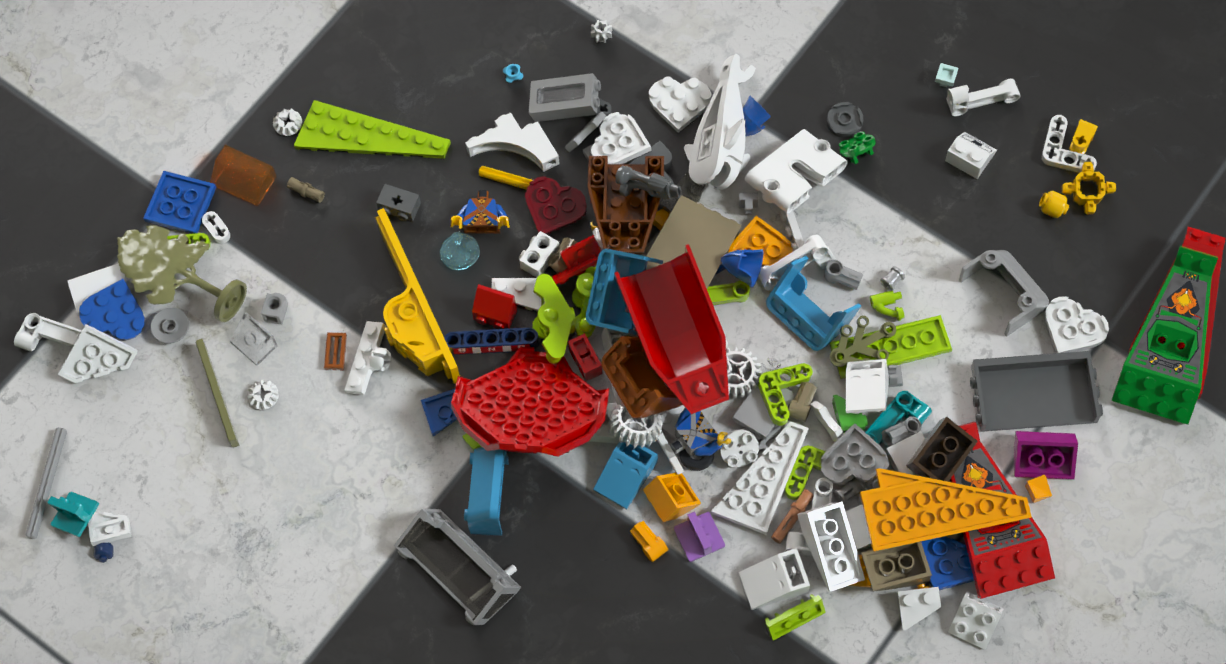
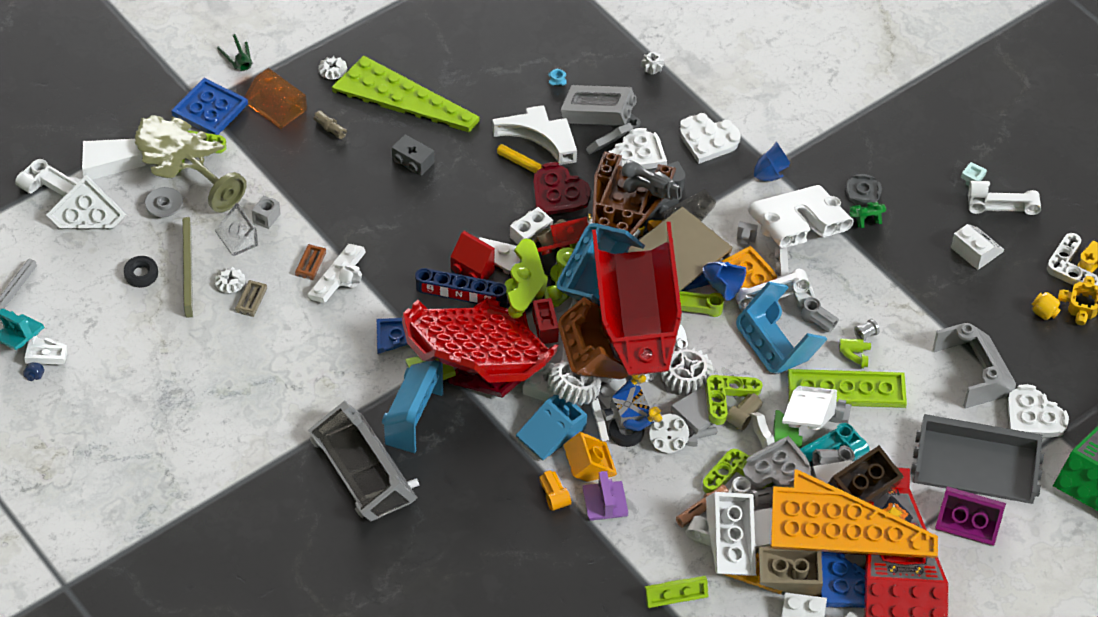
camera: 10 degrees right, 15 degrees down
(113, 311) = (117, 176): blue plate -> none
(164, 401) = (140, 281): none -> black tyre
(195, 139) = (242, 60): none -> dark green plant
(219, 225) = (232, 136): white beam -> none
(289, 423) = (253, 309): none -> dark tan tile
(409, 317) = (392, 260): yellow piece -> none
(459, 251) = (456, 208): clear light blue piece -> none
(481, 215) = (486, 183): torso -> none
(720, 138) = (738, 168): white animal -> none
(760, 488) = (682, 472): white wing -> none
(775, 579) = (667, 553): white slope -> none
(860, 345) = (815, 375): olive plant -> none
(1038, 488) = (955, 543): light orange slope -> none

